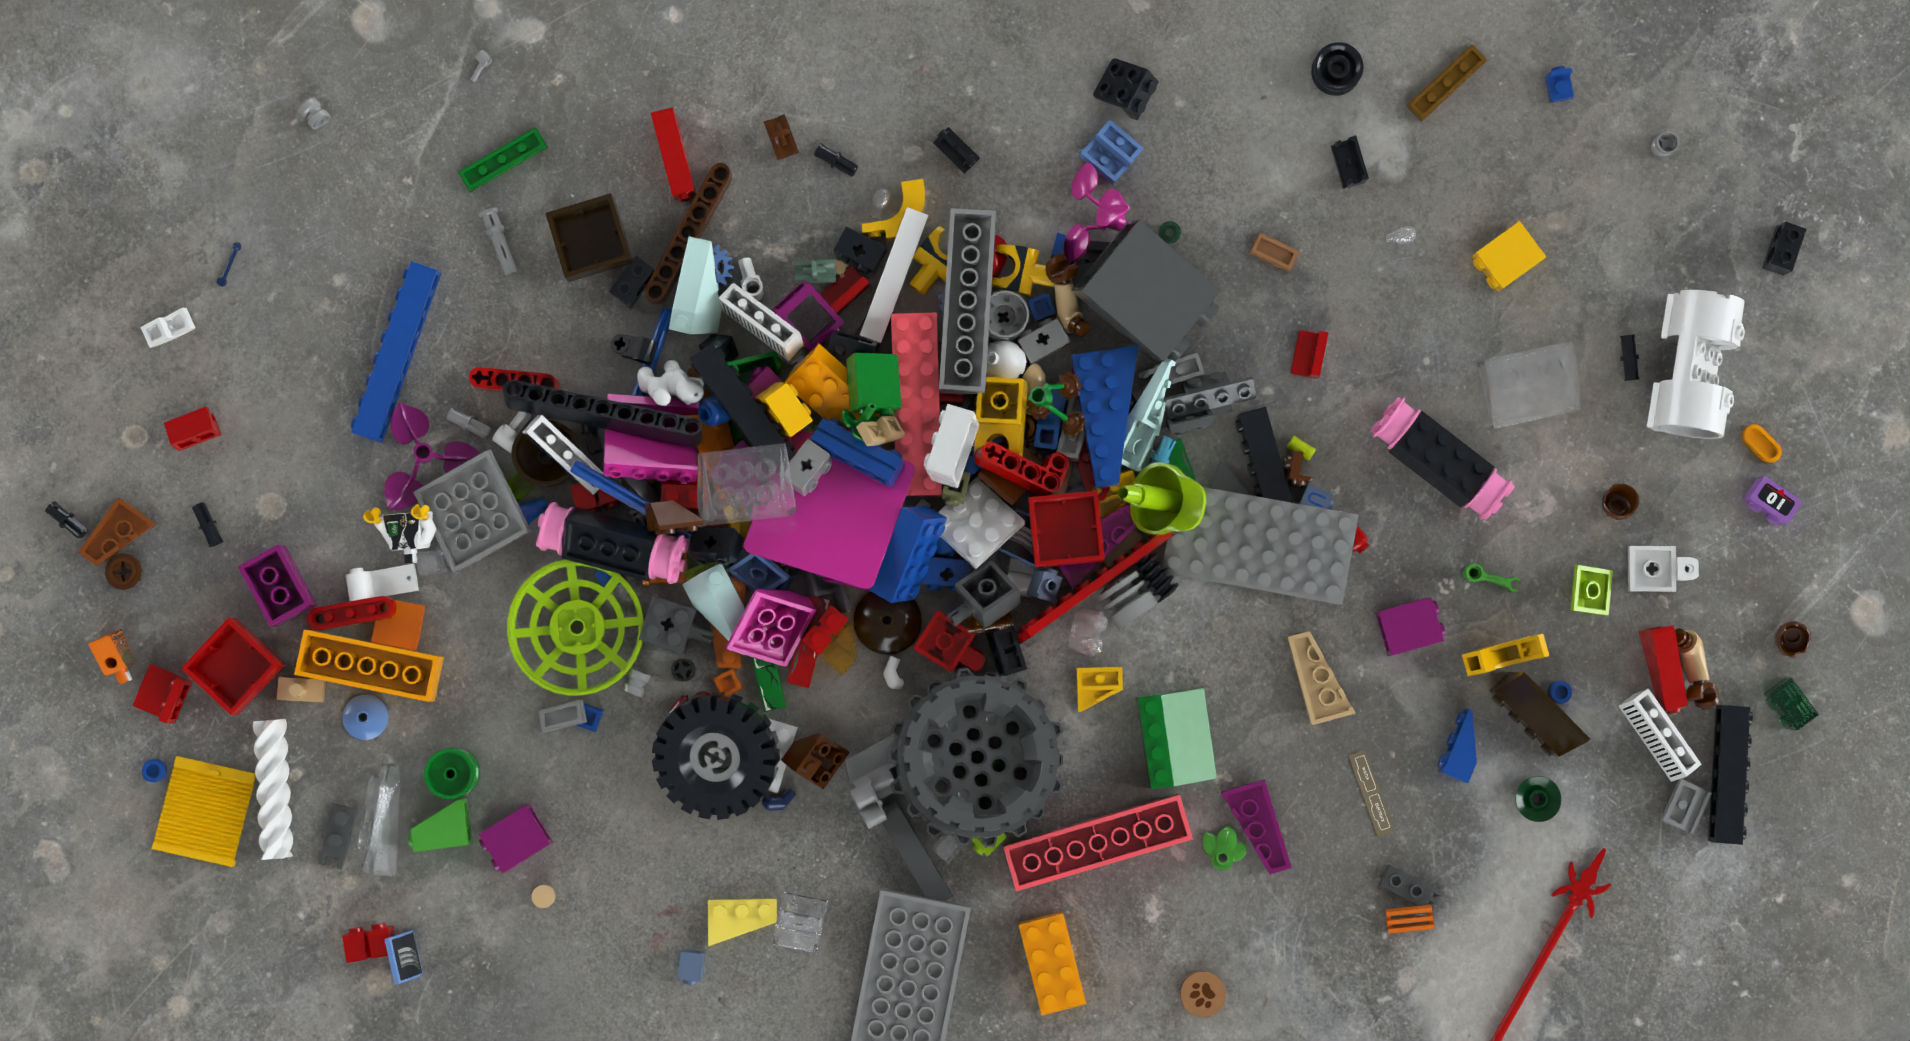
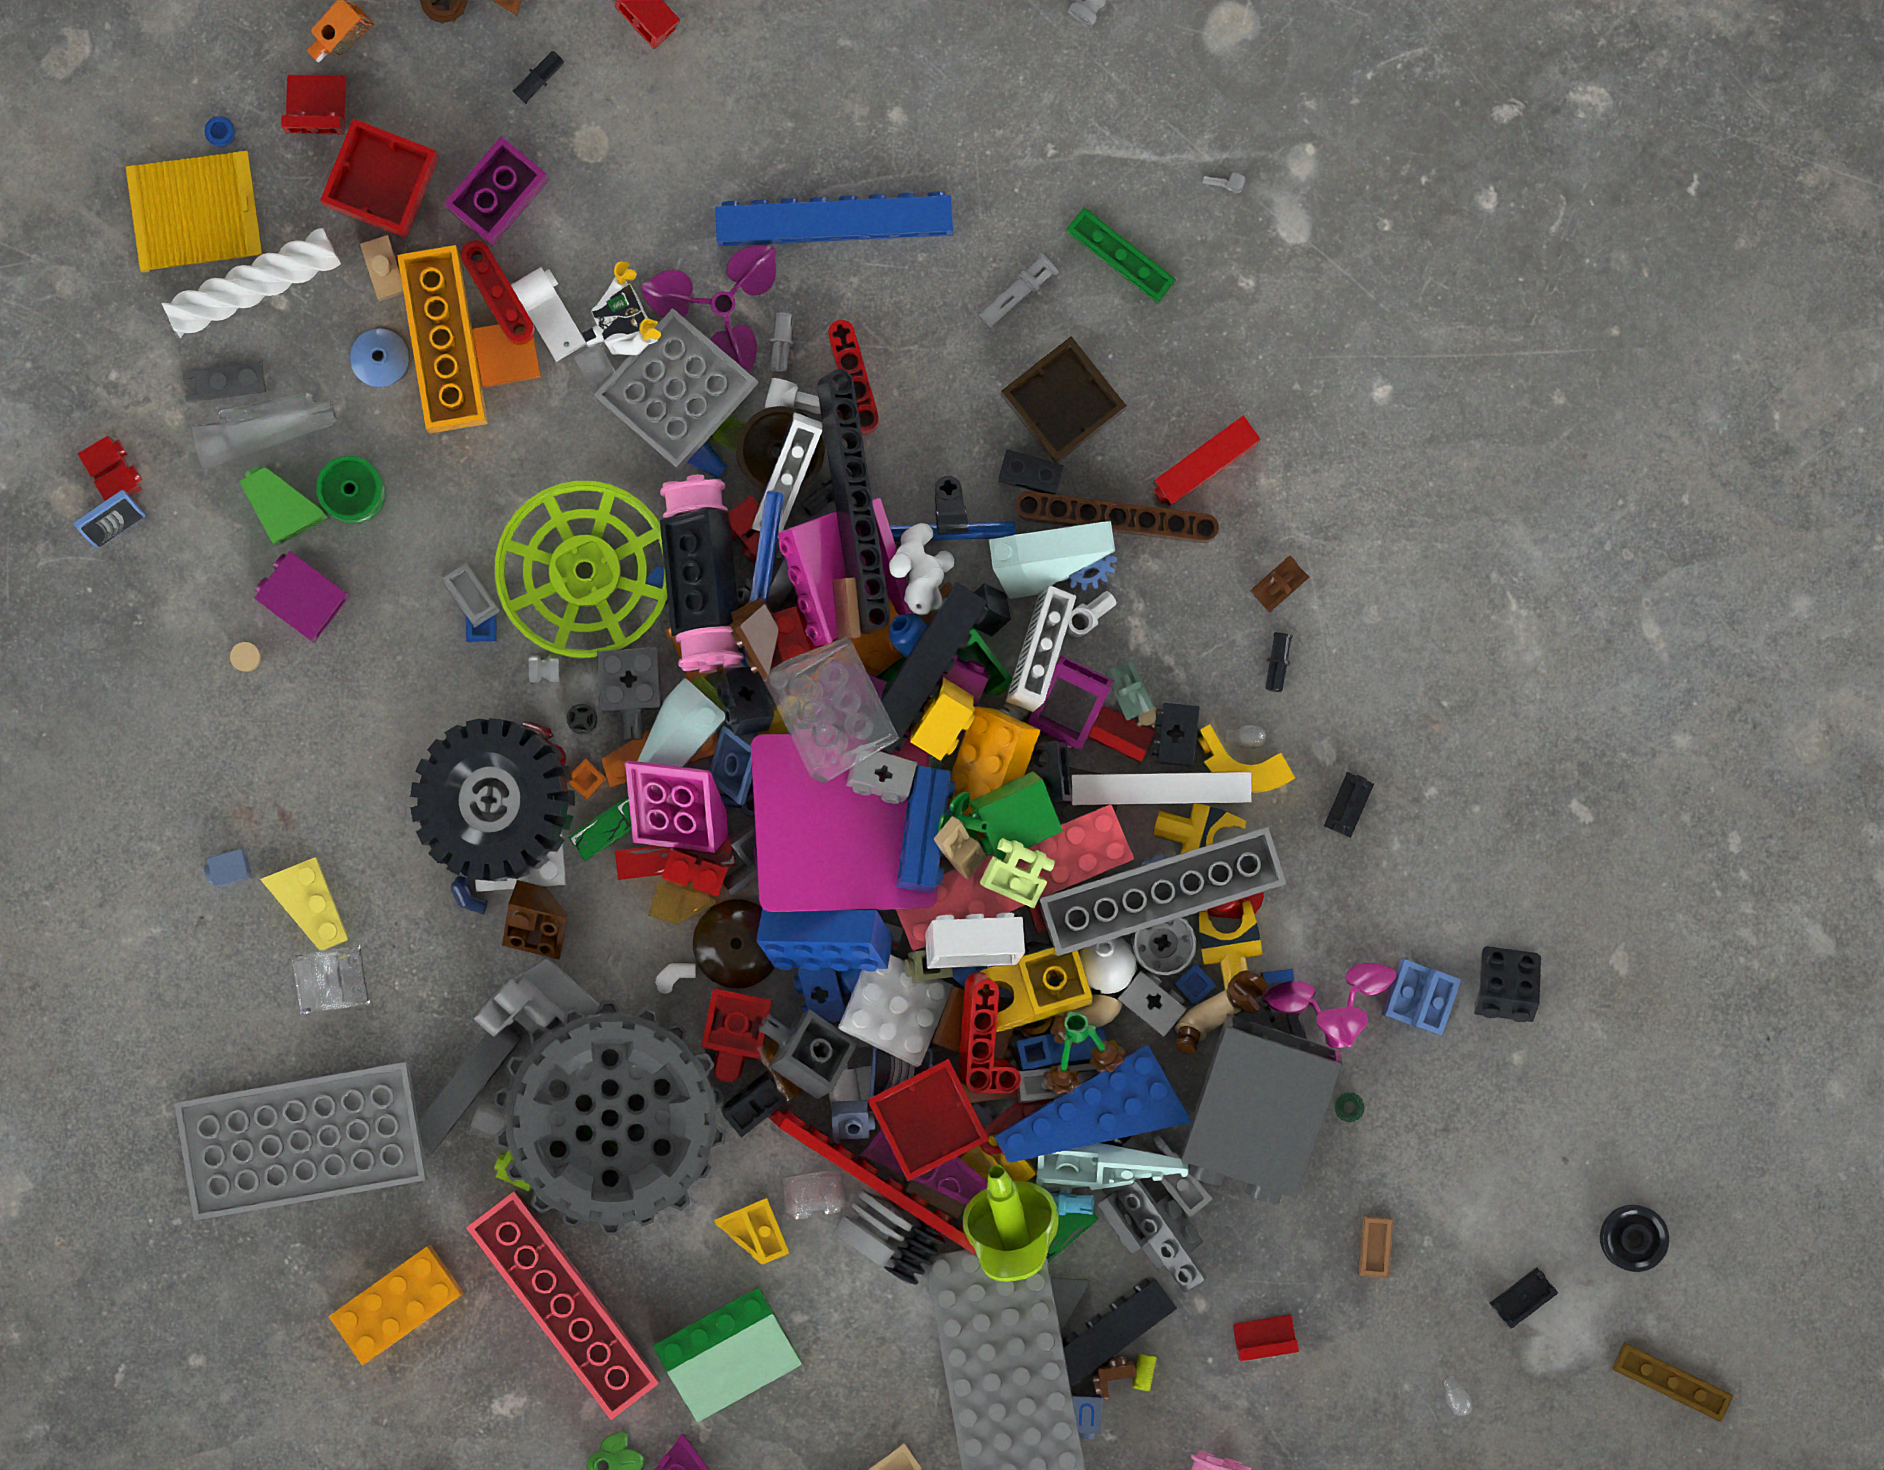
camera: 70 degrees right, 0 degrees up
(677, 447) = (846, 608): none -> medium nougat tile
(920, 402) = (1012, 881): none -> yellowish green plate

